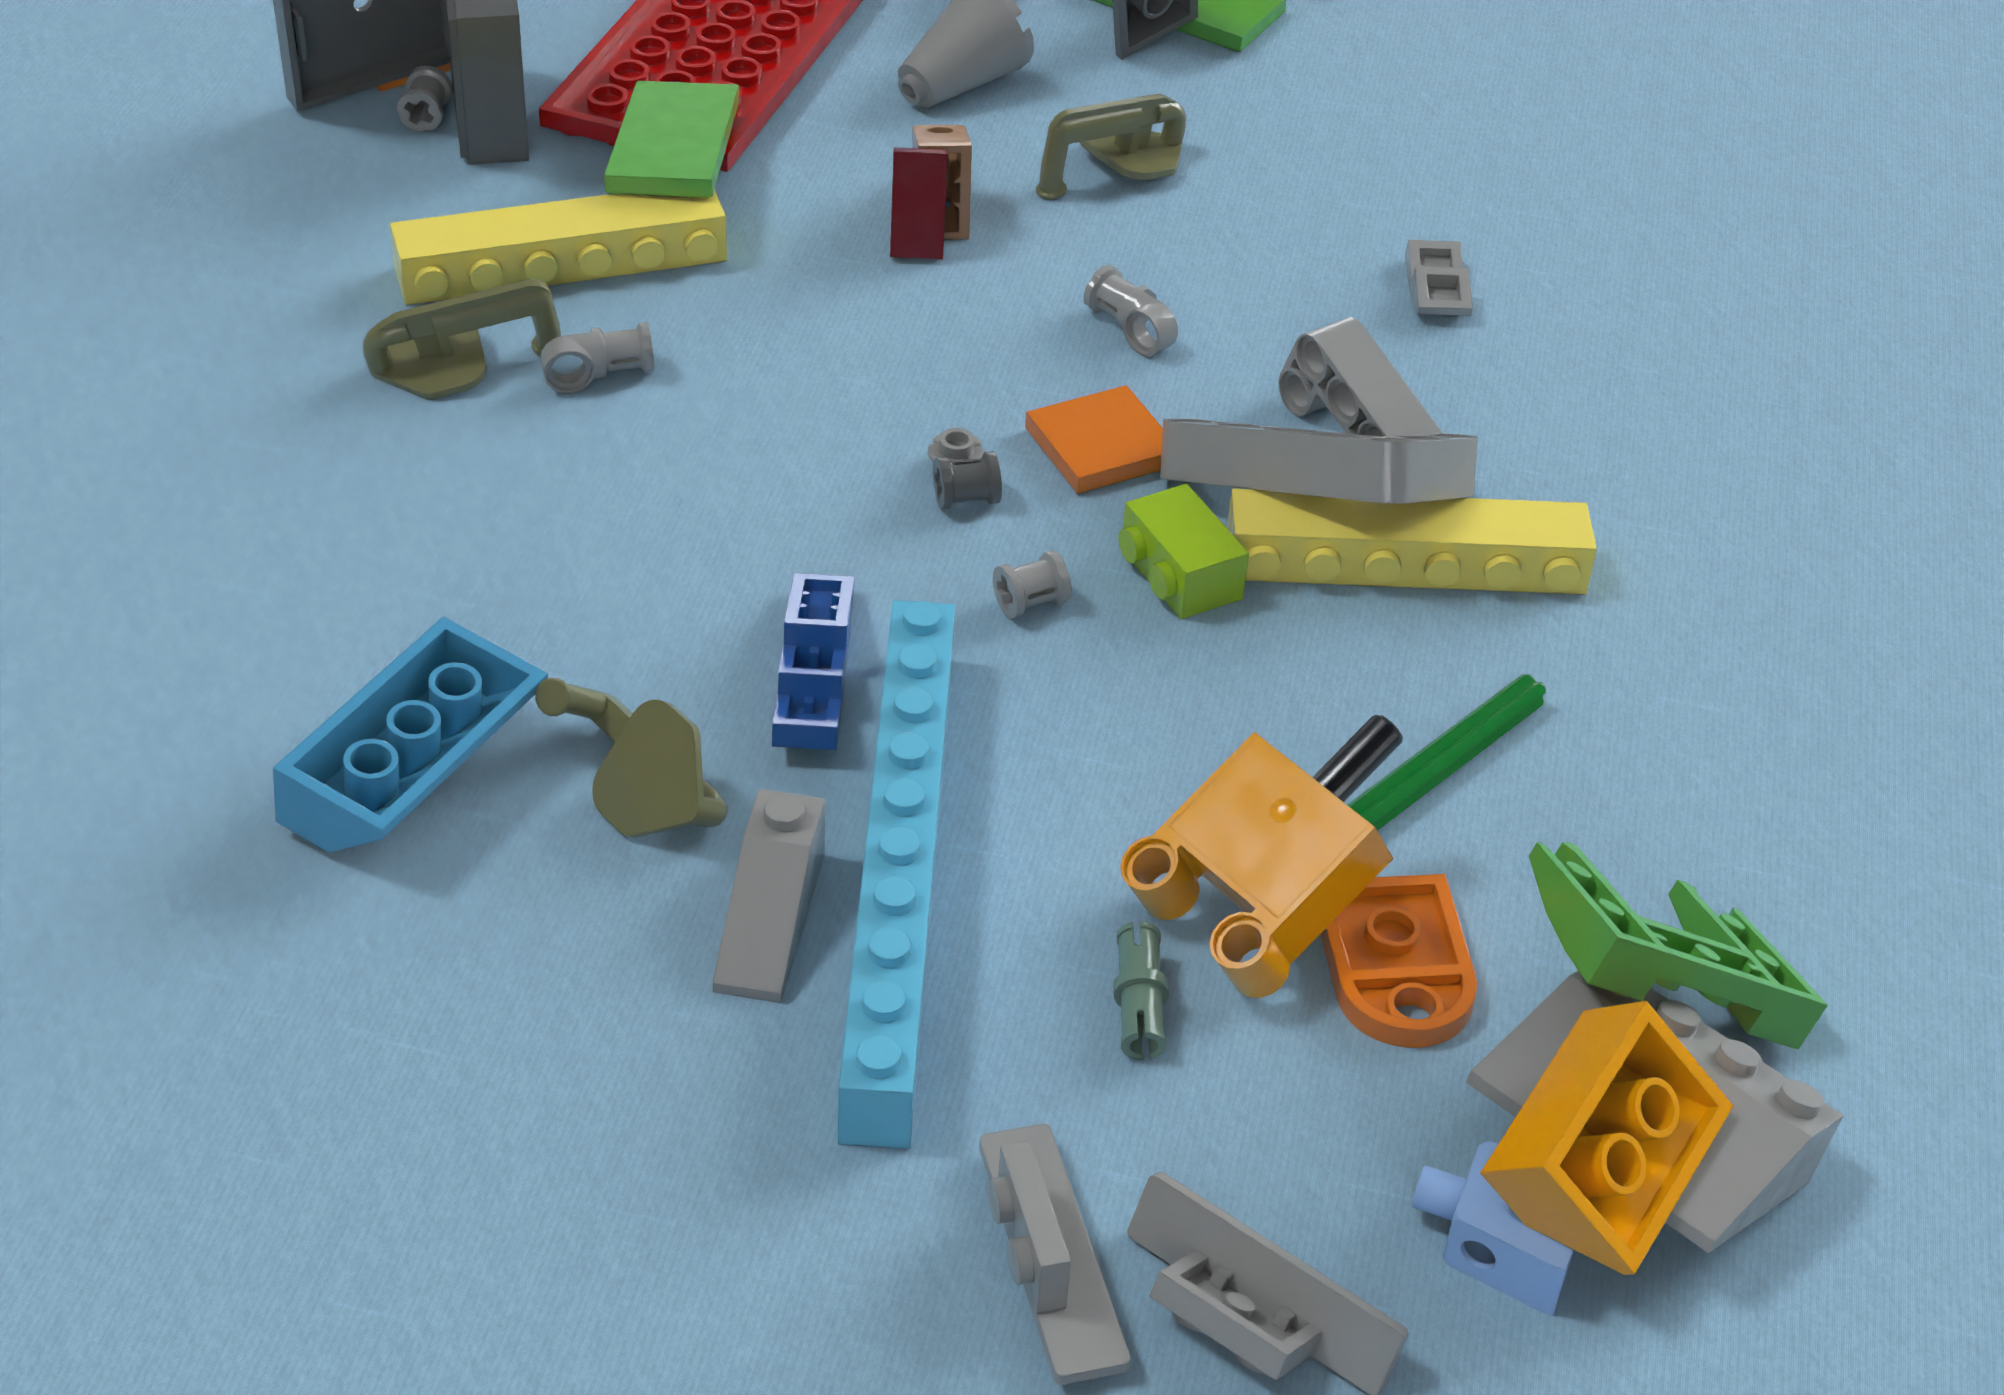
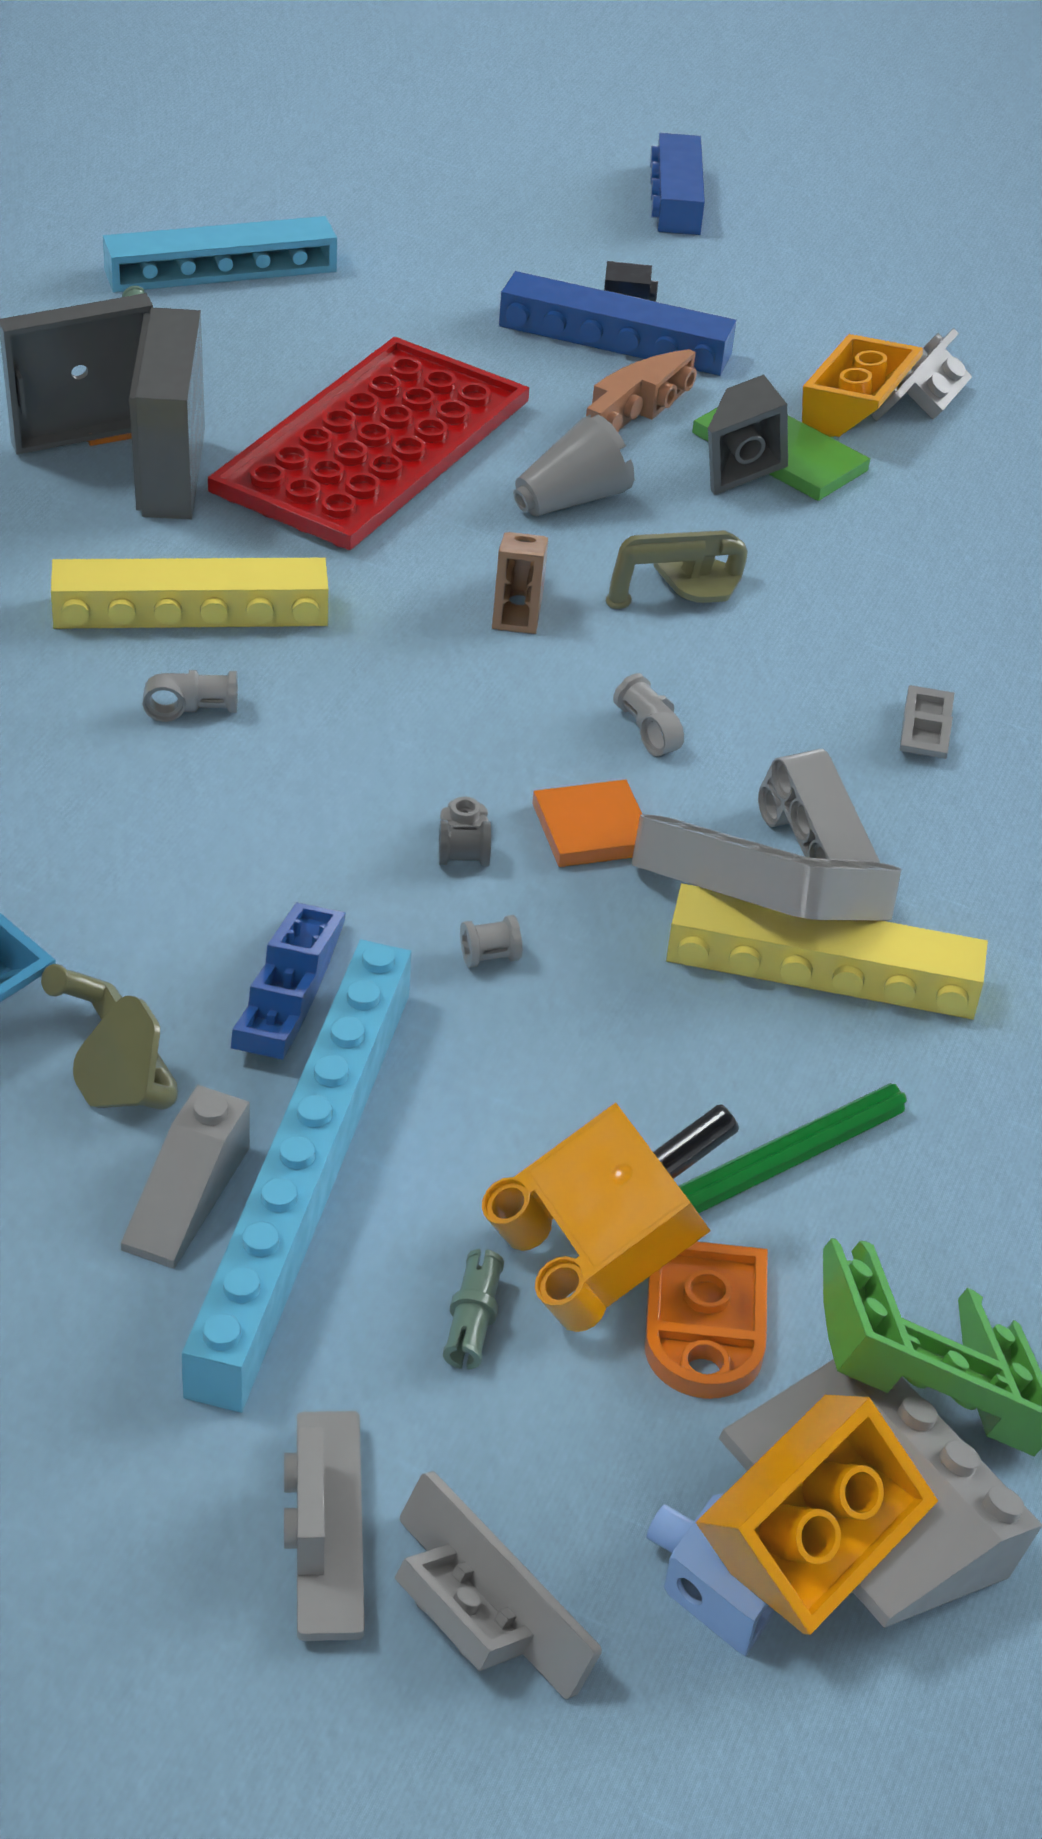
camera: 10 degrees right, 0 degrees up
(425, 96) = (115, 462): light grey bush -> none
(438, 345) = (65, 667): olive piece -> none
(672, 139) = (304, 518): bright green tile -> none
(918, 203) = (492, 599): dark red tile -> none
(1183, 551) = (628, 931): lime brick -> none

